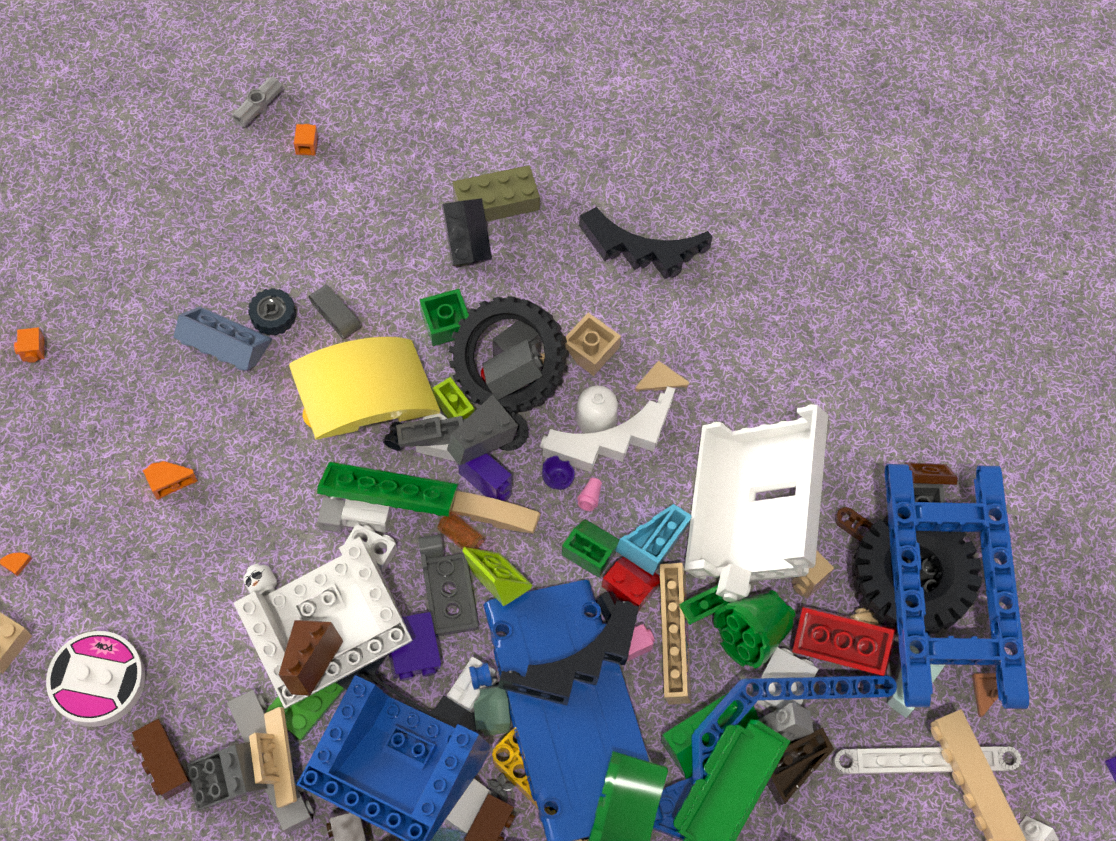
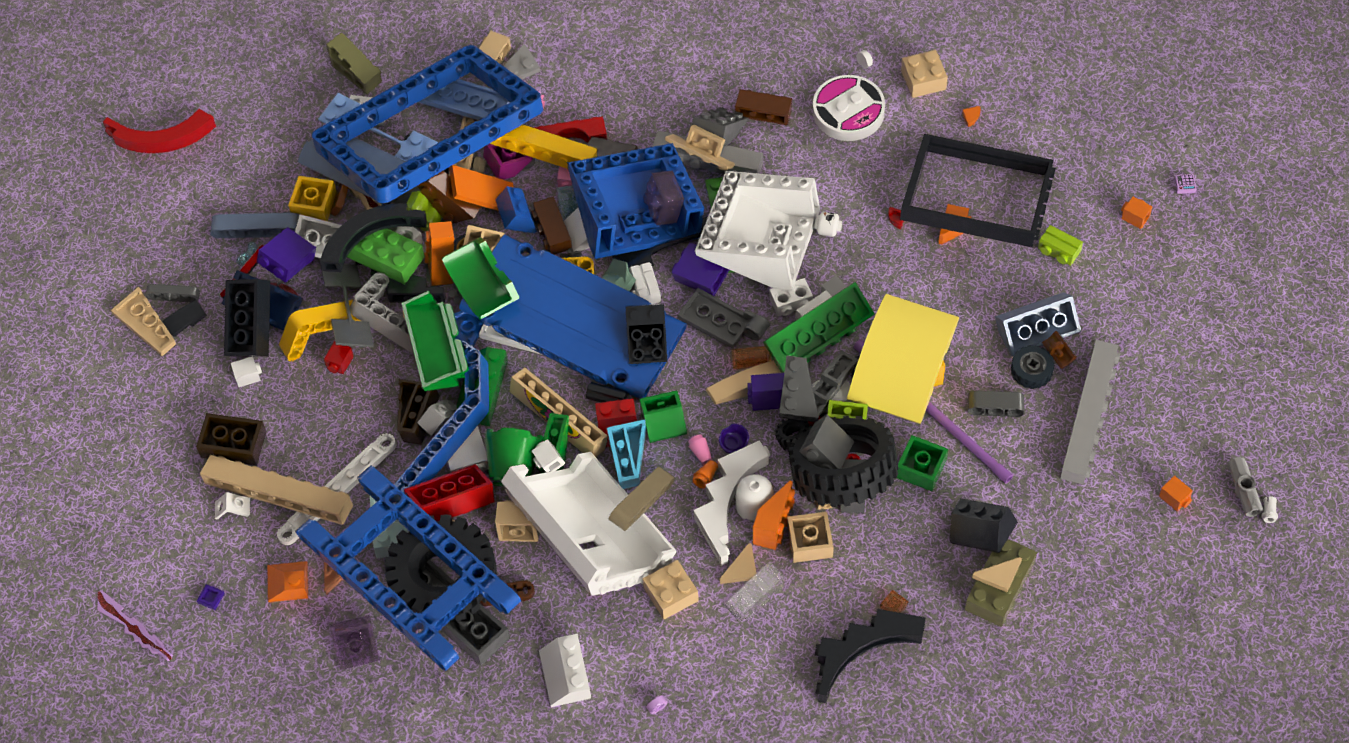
camera: 140 degrees right, 5 degrees down
(17, 713) = (864, 59): none -> white tile
(78, 420) = (985, 155): none -> black door
(120, 377) = (1060, 245): none -> lime brick
(197, 535) = (894, 216): none -> red tile
(239, 300) = (1059, 350): none -> reddish brown hips
(263, 76) = (1269, 514): none -> white pin
(279, 242) = (1089, 412): none -> light grey brick
(308, 655) = (741, 192): reddish brown wedge -> none
(373, 727) = (664, 198): none -> clear purple brick
(395, 269) = (997, 468): none -> medium lavender piece
(480, 676) = (640, 281): blue wheel -> none
(497, 574) = (698, 341): lime slope -> none
(499, 183) = (1000, 575): none -> tan tile
(530, 619) = (646, 333): none -> black slope
(555, 679) = (593, 311): black arch -> none
(583, 254) = (894, 602): none -> clear orange tile
(609, 471) = (705, 474): none -> orange cone
(611, 372) = (773, 518): none -> orange slope
(641, 642) = (576, 391): bright pink brick -> none
(675, 347) = (755, 592): none -> clear brick
(688, 484) = (641, 498): none -> dark tan beam
(736, 405) = (670, 589): none -> tan brick
(831, 341) = (656, 704): none -> lavender tile
(876, 425) = (564, 671): none -> white slope
(932, 473) = (495, 664): reddish brown tile -> none
(1034, 605) = (354, 642): none -> clear purple slope
(1044, 715) = (287, 581): none -> orange slope

